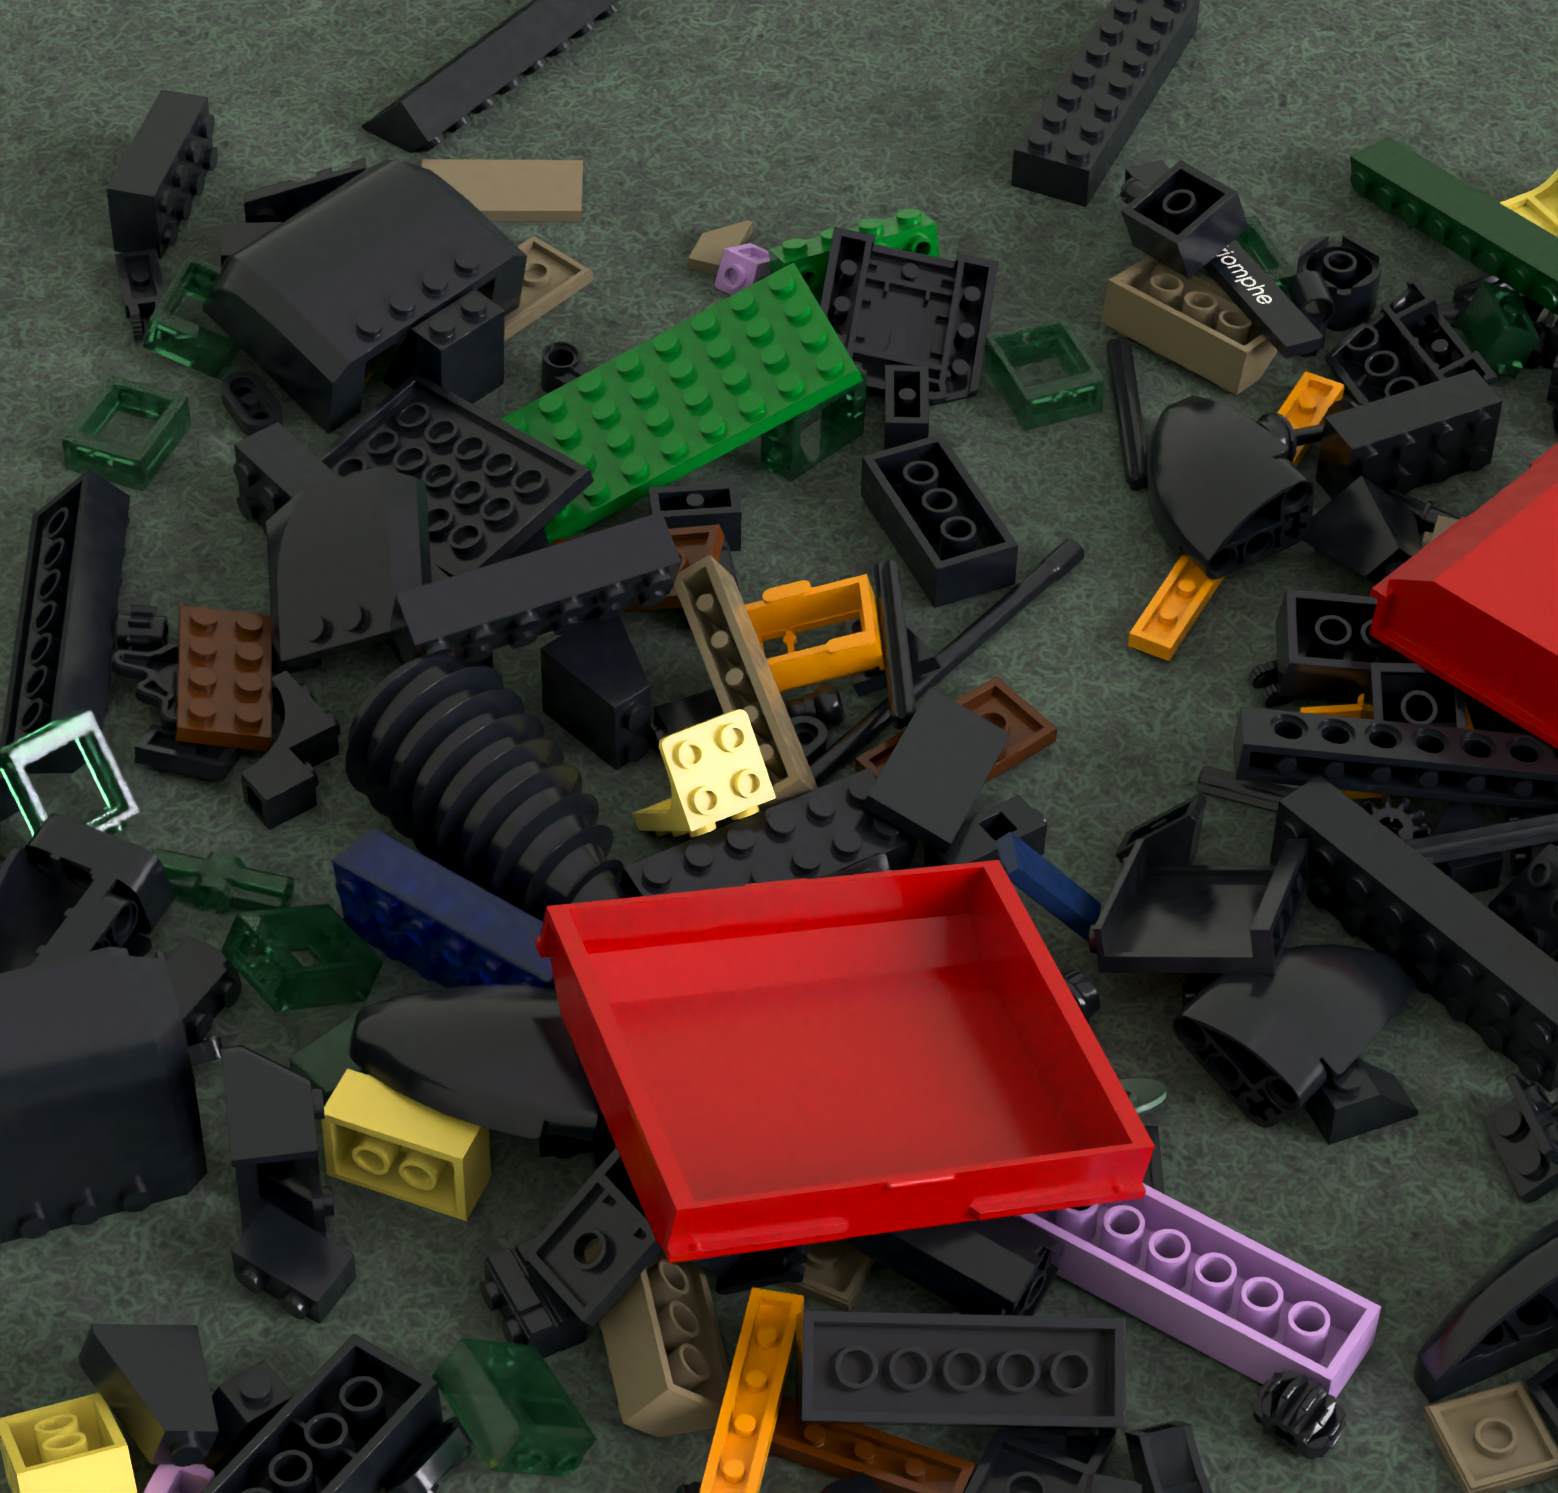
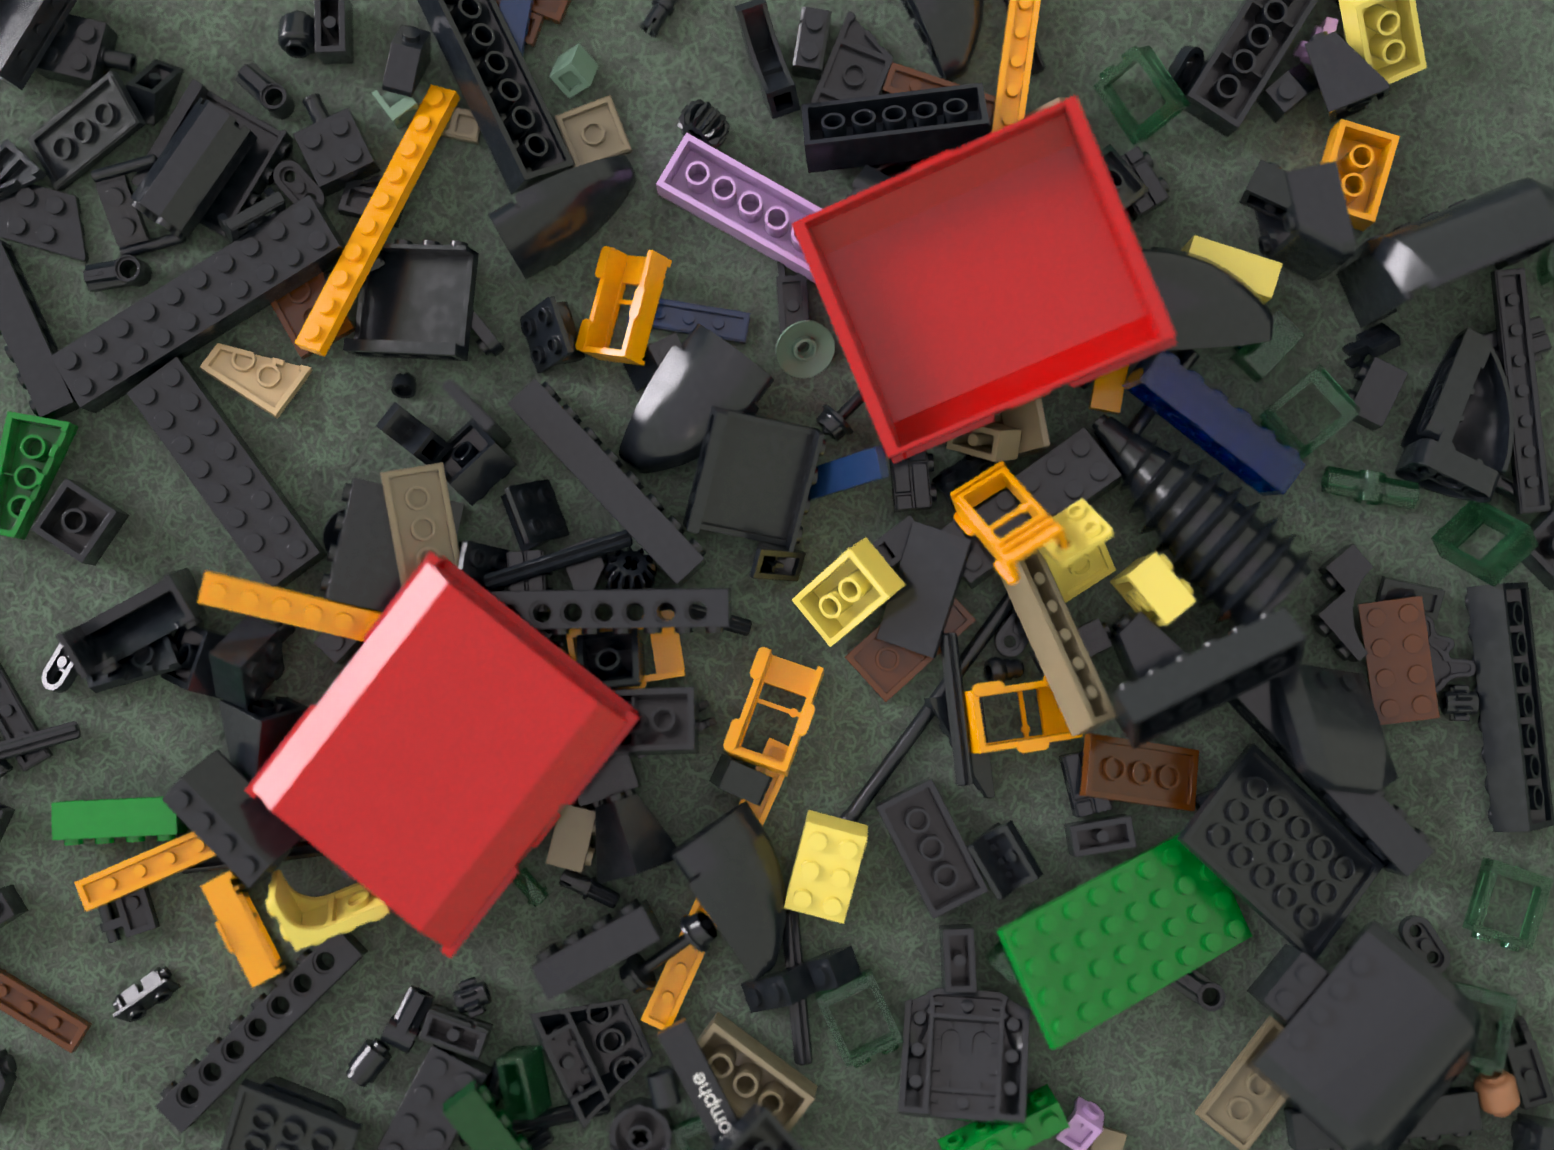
camera: 175 degrees right, 40 degrees up
(161, 1265) = (1363, 165): none -> light orange brick
(183, 245) = (1497, 1093): none -> nougat head
(597, 736) = (1154, 589): none -> light yellow brick
(786, 727) = (1017, 543): none -> light orange piece
(836, 498) = (1004, 859): none -> black bracket
(1053, 772) = (848, 591): none -> light yellow brick
(1088, 411) = (802, 980): none -> black arch
(1089, 503) = (826, 866): none -> light yellow brick
(1183, 611) = (785, 676): none -> light orange piece
(1217, 600) = (740, 780): none -> black slope
(1311, 1165) = (684, 316): none -> dark blue tile
(1467, 1127) = (615, 272): none -> light orange piece

